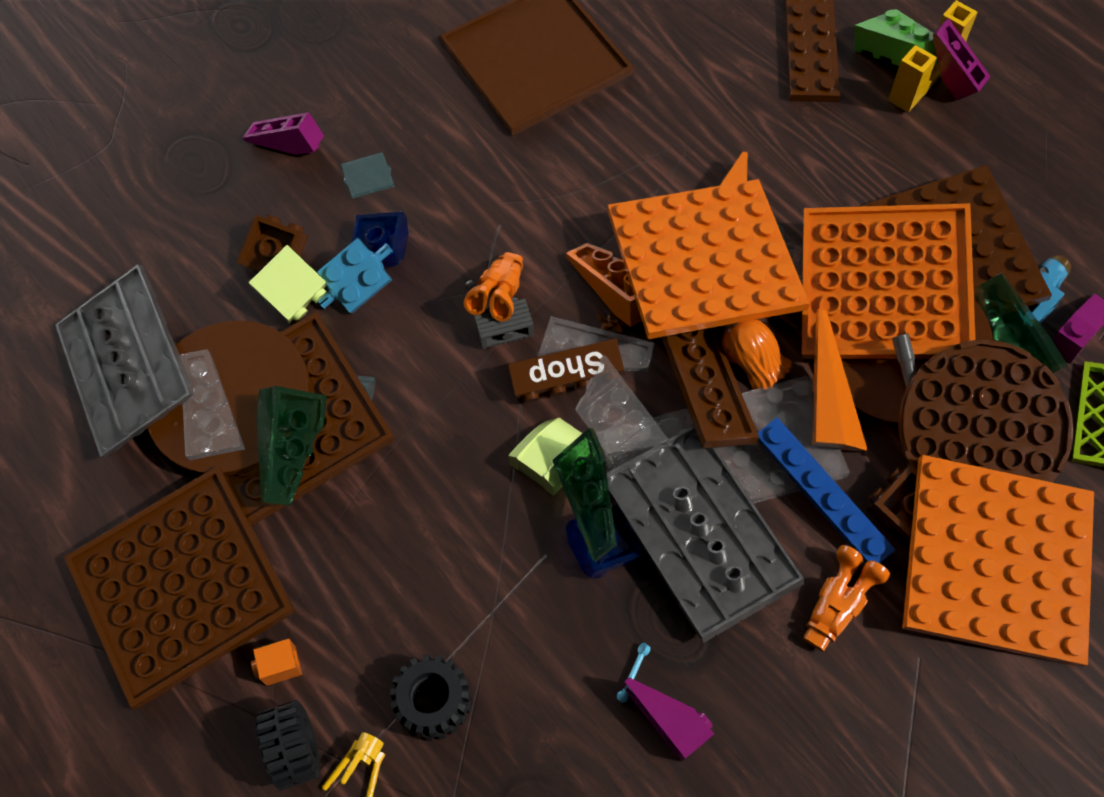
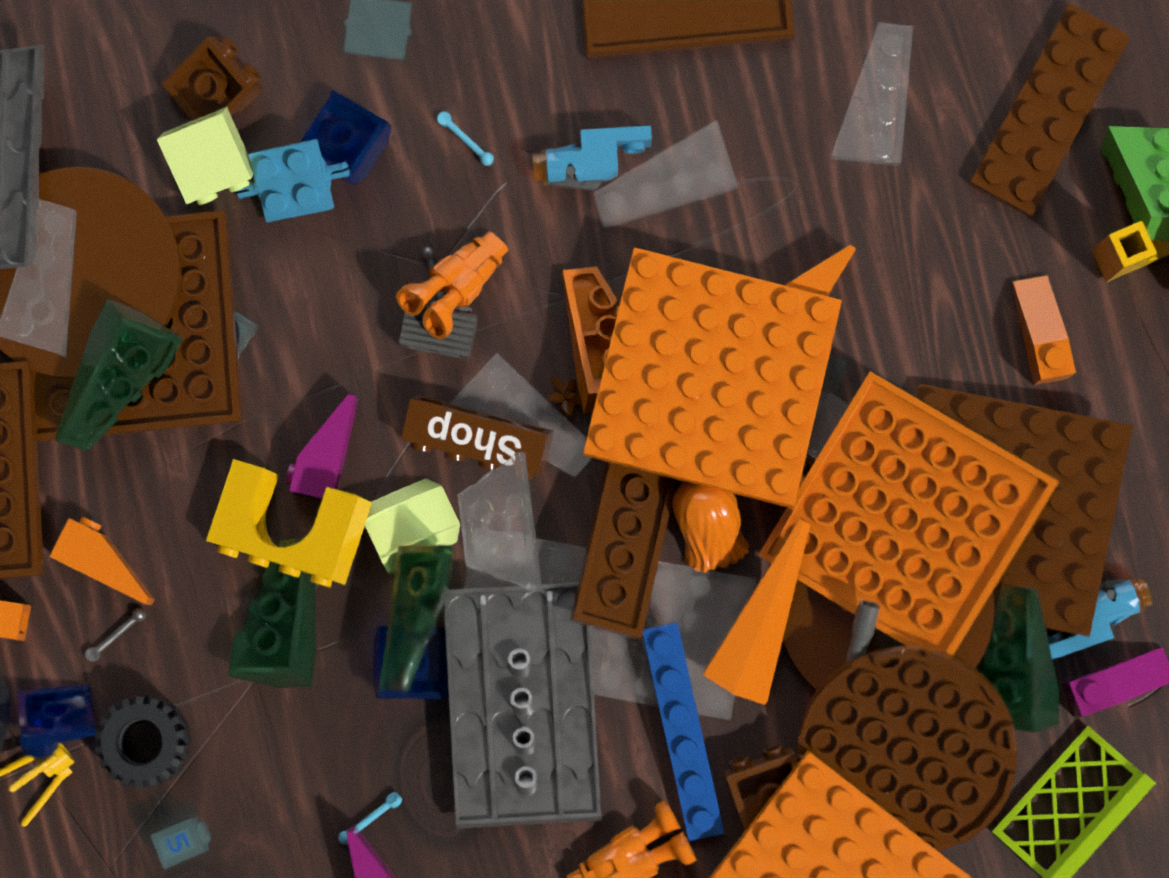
camera: 25 degrees right, 20 degrees up
(329, 583) = (96, 556): none -> orange slope
(351, 714) = (53, 718): none -> clear blue slope
(360, 657) = (93, 654): none -> flat silver hinge
(439, 206) = (445, 120): none -> medium azure hinge
(464, 438) = (324, 456): none -> magenta slope
(494, 568) = (280, 632): none -> clear green wedge
(498, 761) = (181, 842): none -> clear light blue brick
(499, 492) = (323, 553): none -> yellow arch
(548, 180) = (593, 162): none -> dark azure plate
(606, 172) = (675, 177): none -> clear wing
(708, 80) = (877, 109): none -> clear wing
(893, 152) = (1043, 331): none -> orange slope

